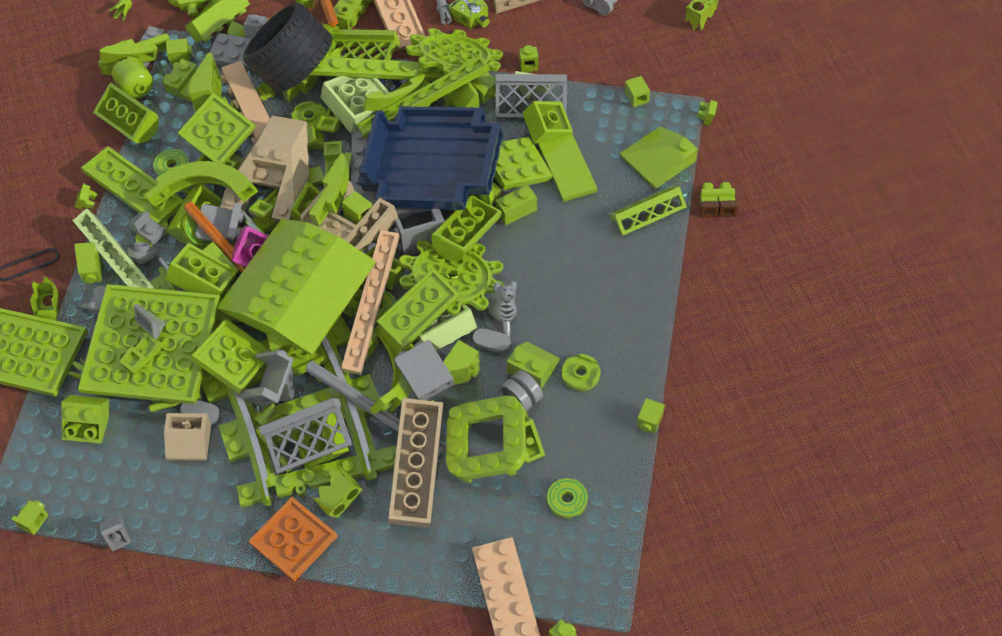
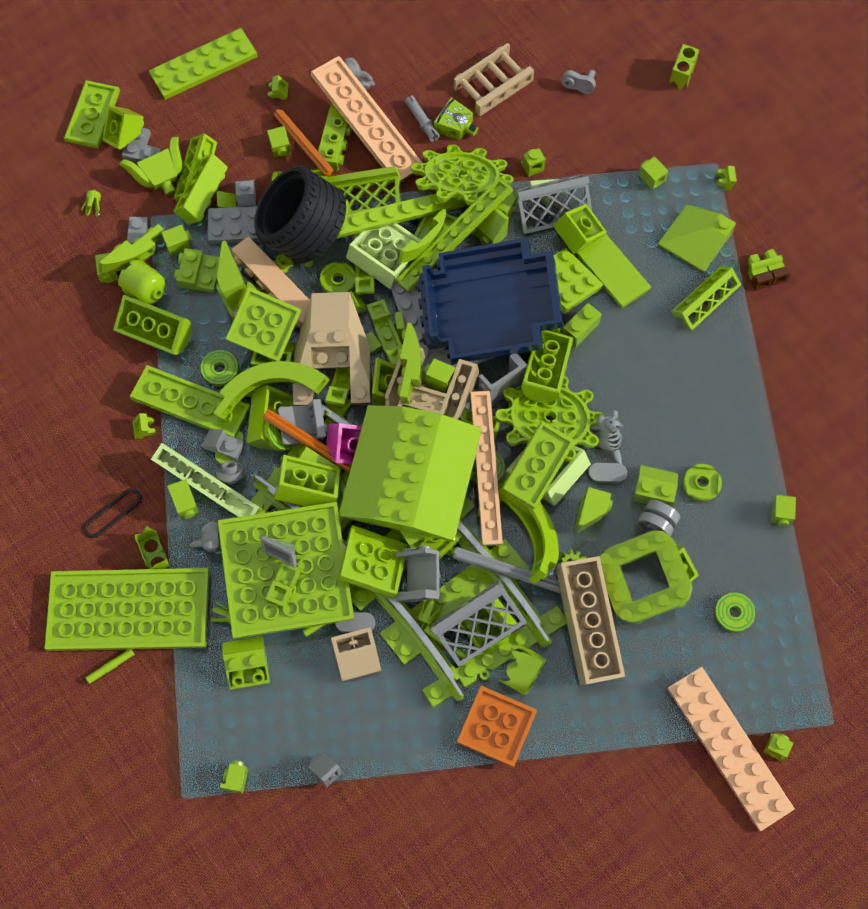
camera: 20 degrees left, 10 degrees up
(424, 370) = (565, 525): light grey panel -> none

